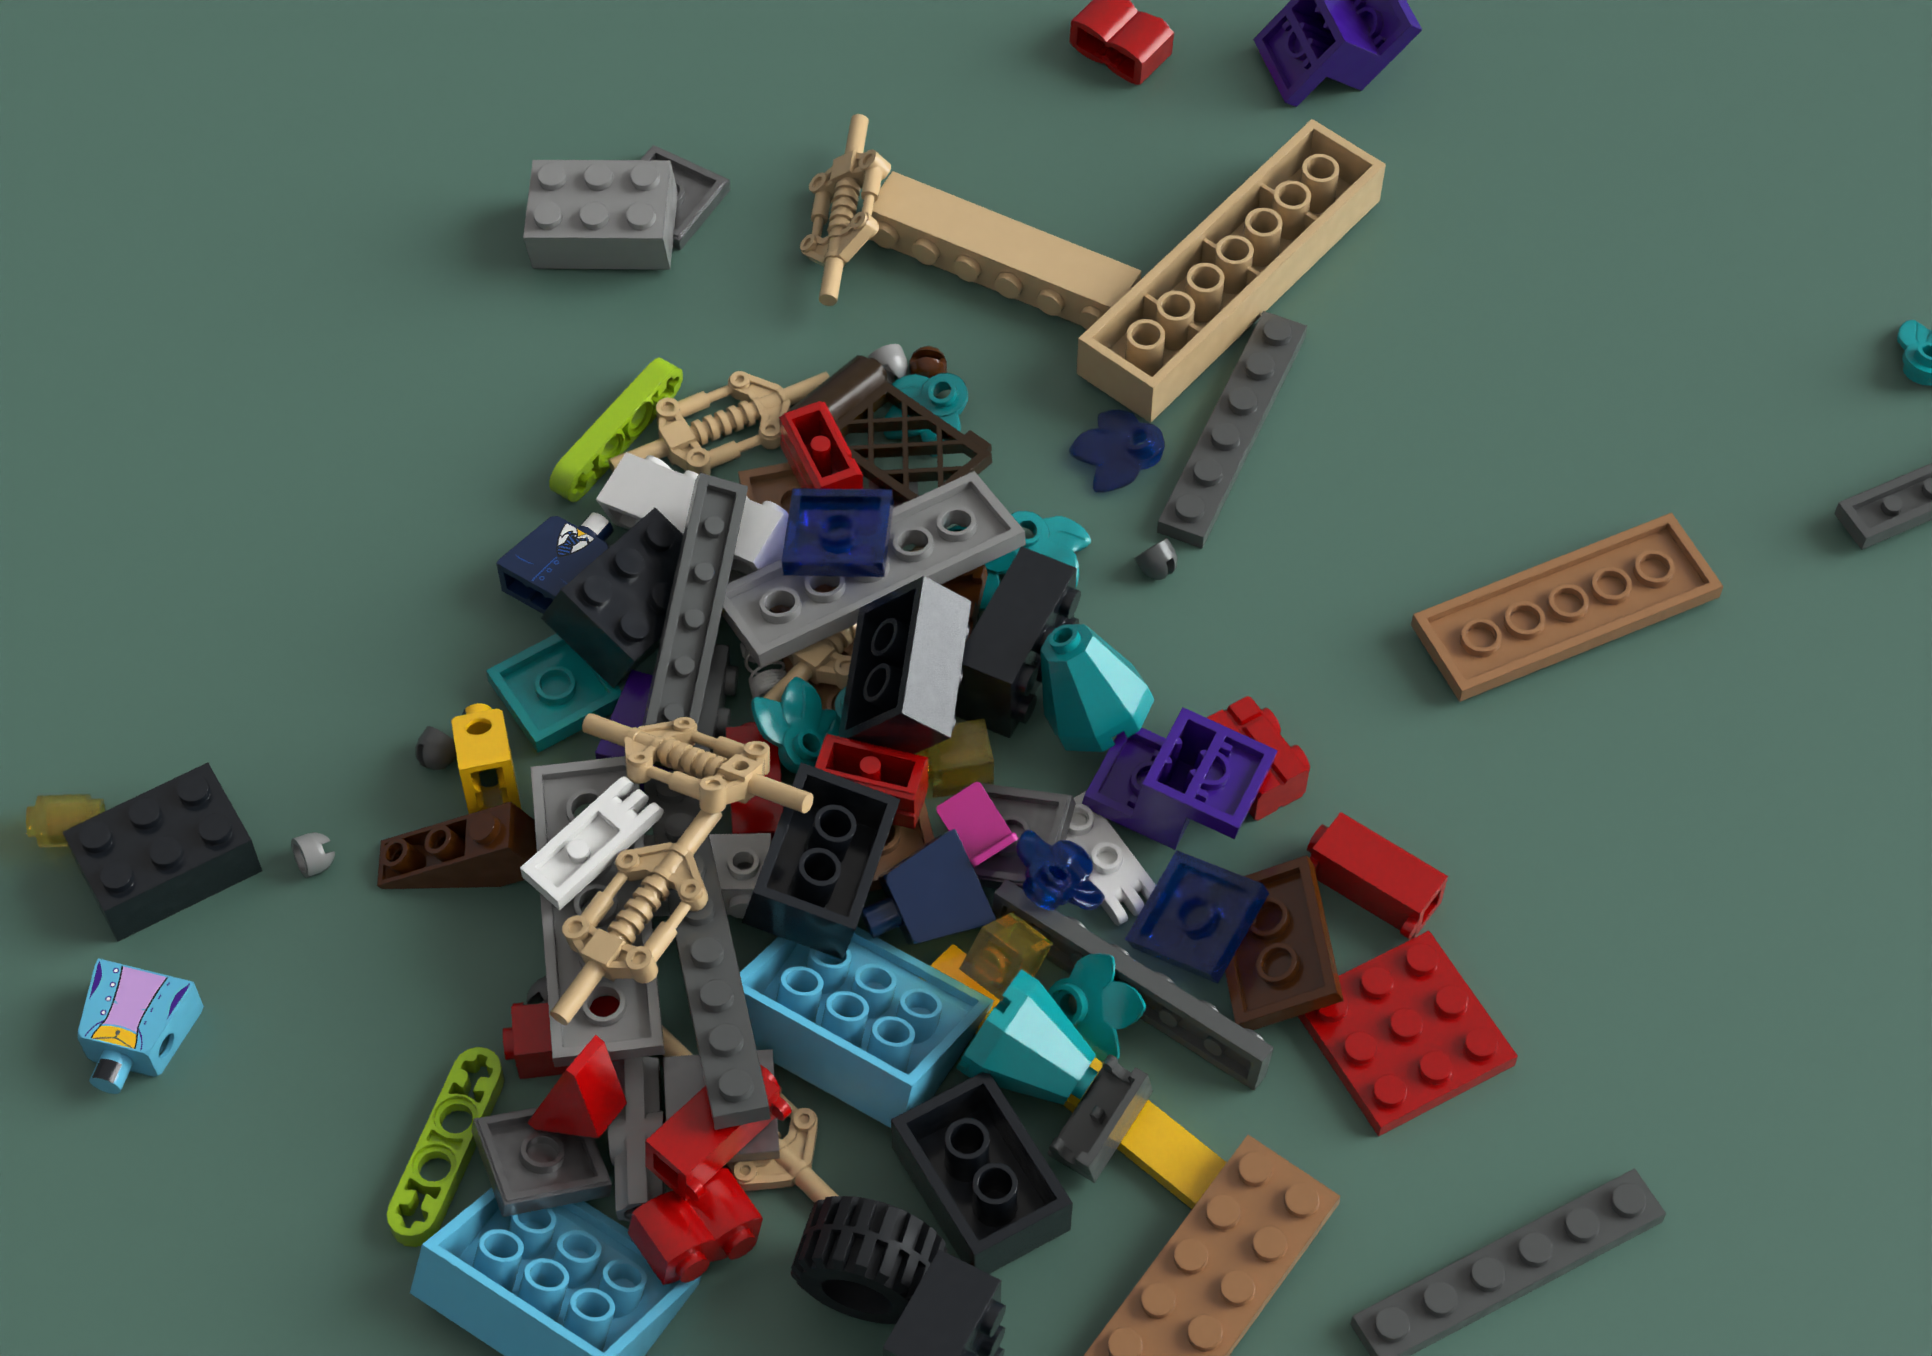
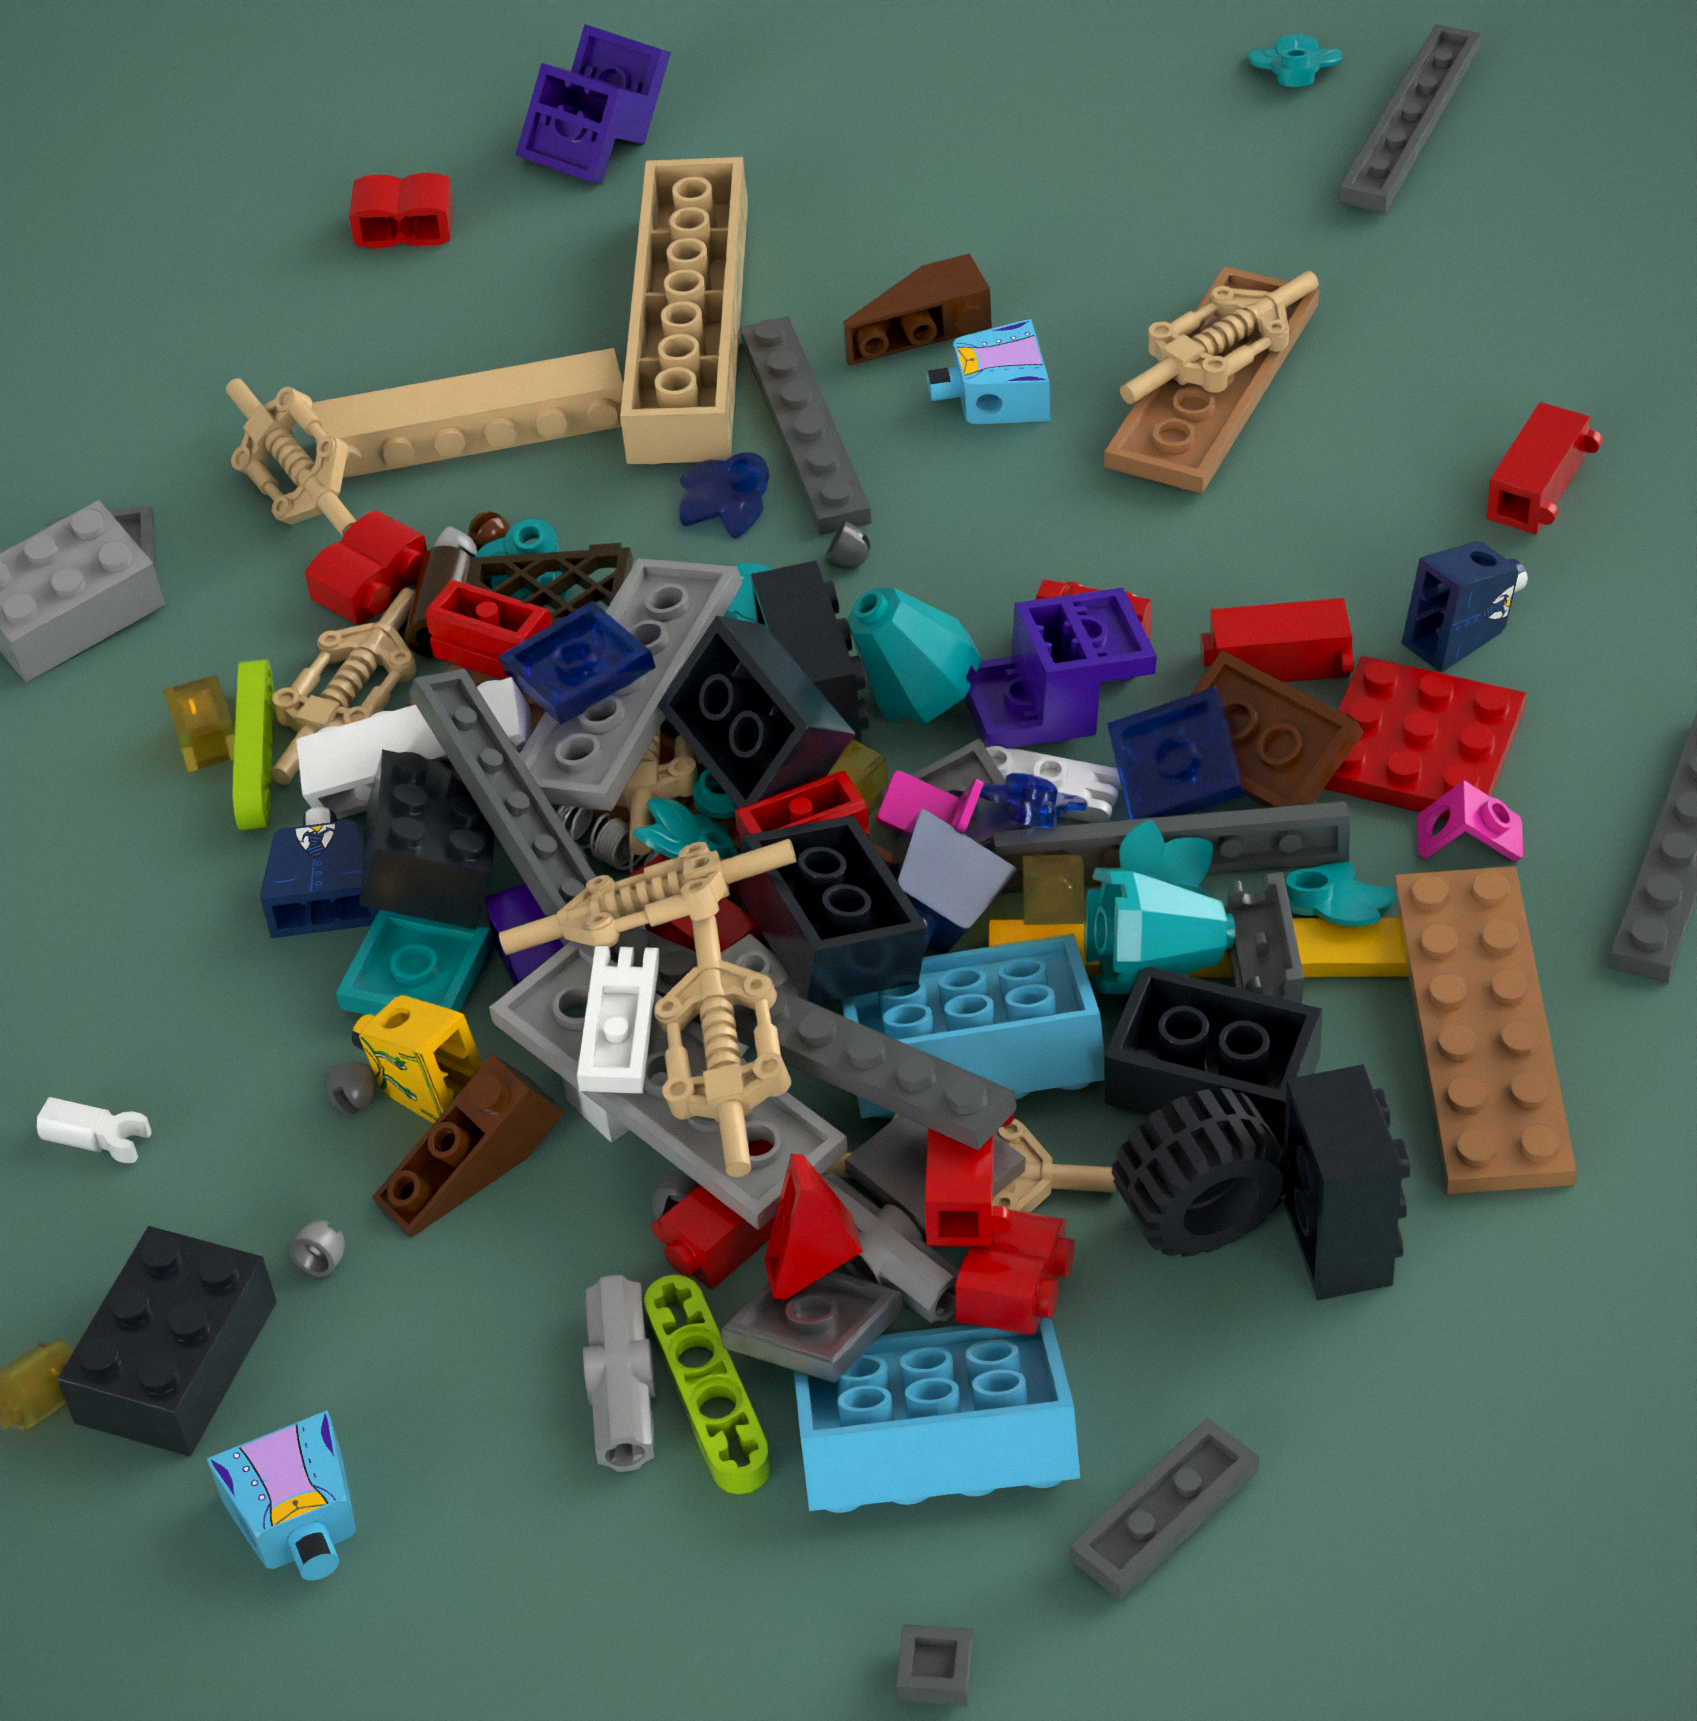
camera: 35 degrees left, 10 degrees down
(262, 653) = (92, 1128): none -> white bar
(396, 1096) = (619, 1374): none -> light grey piece
(595, 384) = (201, 722): none -> clear yellow brick
(815, 336) = (366, 567): none -> red brick
(1206, 1112) = (1336, 896): none -> teal plate
(1366, 1134) = (1476, 814): none -> dark pink bracket
(1403, 488) = (996, 376): none -> medium azure torso
(1411, 389) = (920, 310): none -> reddish brown slope
(1541, 944) = (1460, 602): none -> dark blue torso
(1548, 581) = (1196, 358): none -> tan bar
(1731, 870) = (1540, 467): none -> red brick

